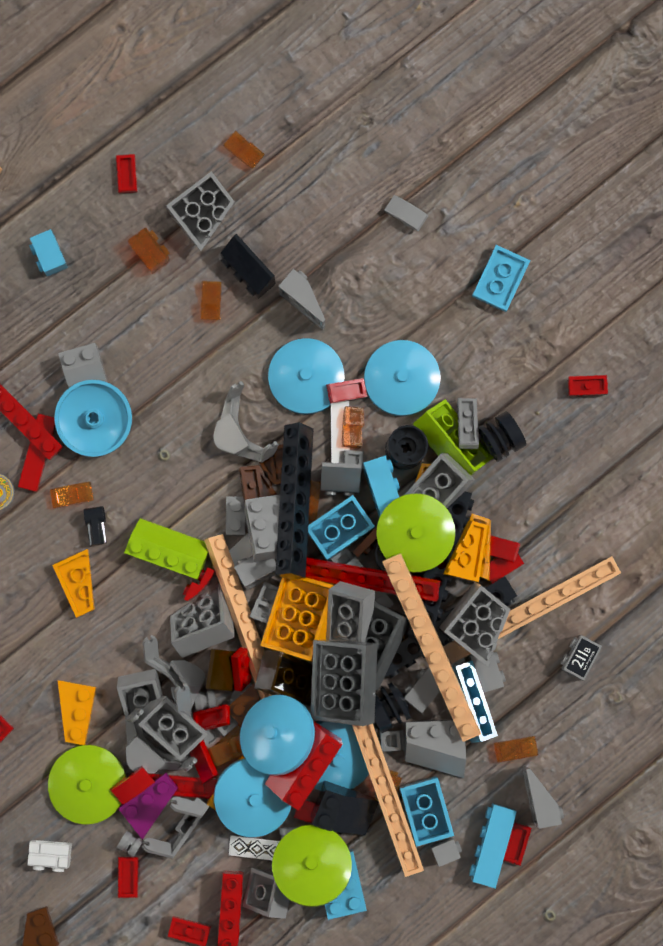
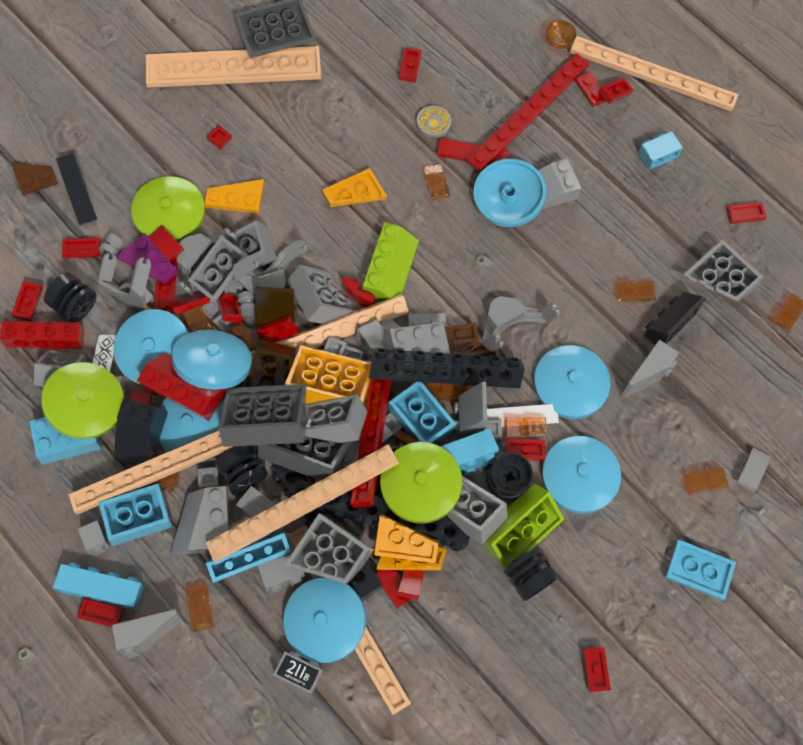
camera: 85 degrees right, 15 degrees down
(49, 854) = (104, 180): white brick -> none
(58, 884) = (76, 189): none -> black slope
(95, 520) = (414, 201): black piece -> none
(148, 250) = (676, 233): clear orange brick -> none
(195, 881) = (70, 297): none -> black wheel
(346, 390) = (562, 418): tile -> none
(376, 429) = (530, 449): none -> red plate
(415, 260) = (706, 480): none -> clear orange slope
(467, 423) = (541, 538): light grey tile -> none
(535, 632) = (324, 620): none -> medium azure dish

